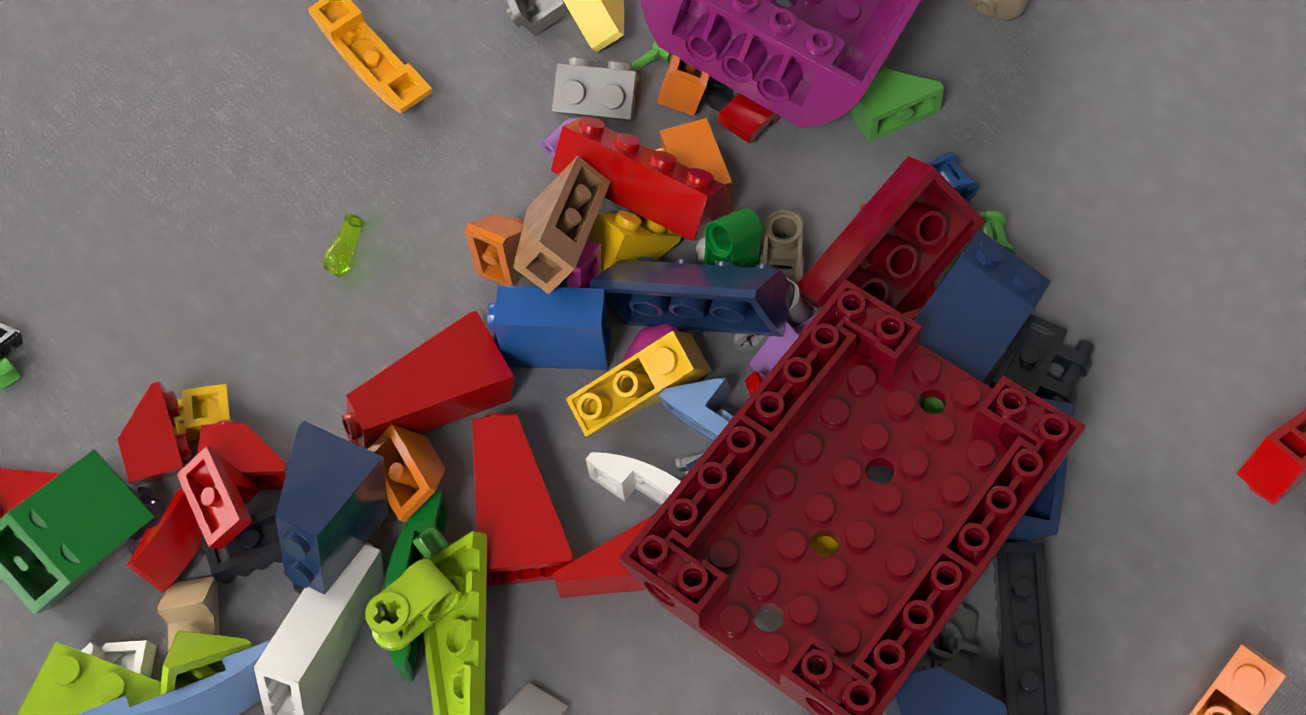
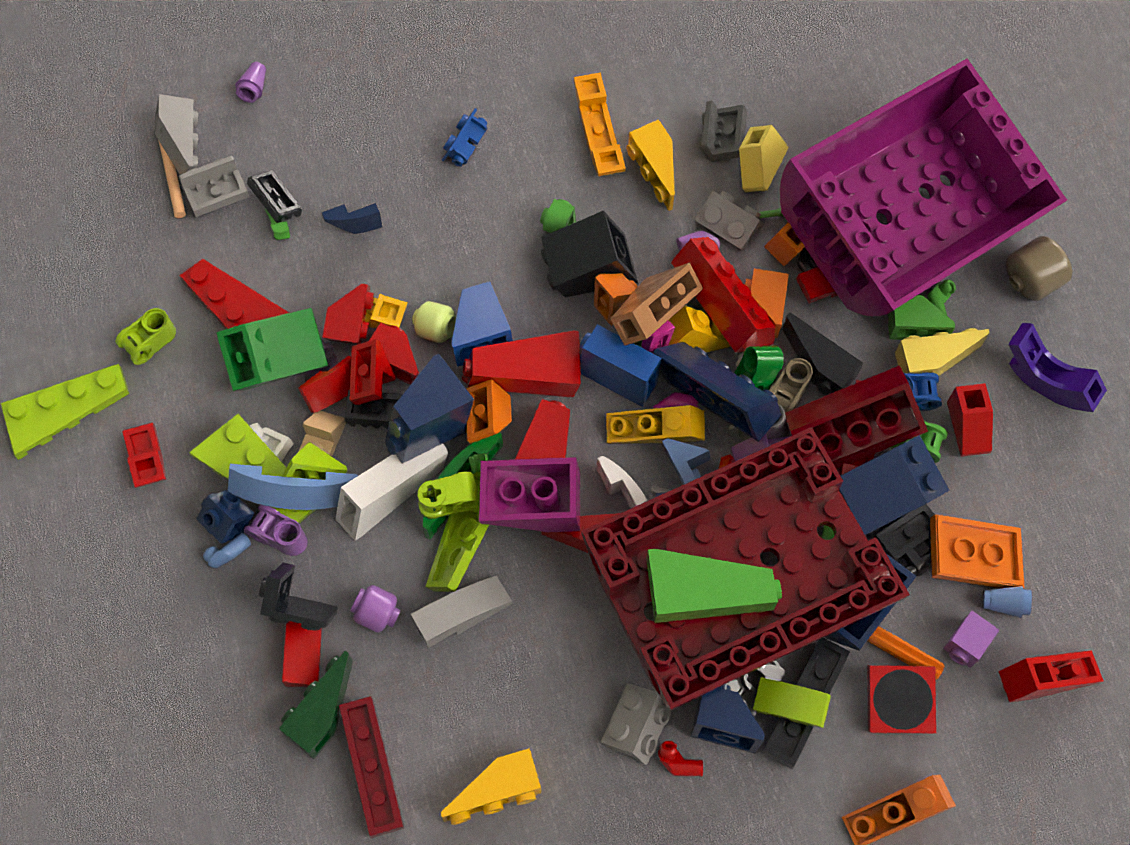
camera: 20 degrees right, 5 degrees up
(103, 314) = (355, 222): none -> dark blue slope
(197, 160) = (470, 129): none -> blue hinge
(276, 391) = (434, 322): none -> yellowish green head
(336, 361) = (478, 322): none -> slope
(338, 254) = (519, 248): clear neon green arm -> none
(376, 186) = (558, 215): none -> bright green plate
(428, 214) = (585, 251): none -> black slope
(459, 56) = (654, 154): none -> yellow slope
(523, 546) = (531, 494): none -> magenta slope
(821, 201) = (830, 363): none -> black slope
(821, 549) = (707, 587): none -> bright green slope
(901, 56) = (941, 293): none -> bright green arm
(939, 125) = (939, 351): none -> light yellow slope
(1010, 645) = (792, 702): none -> lime slope
(1025, 185) = (972, 419): none -> red slope
(1090, 94) = (1050, 377): none -> dark purple arch
(1115, 510) = (903, 650): none -> orange axle
(1124, 342) = (976, 552): none -> orange tile
(1140, 571) = (901, 699): none -> black tile
(1180, 452) = (970, 640): none -> medium lavender brick
(1197, 381) = (1010, 601): none -> medium blue cone

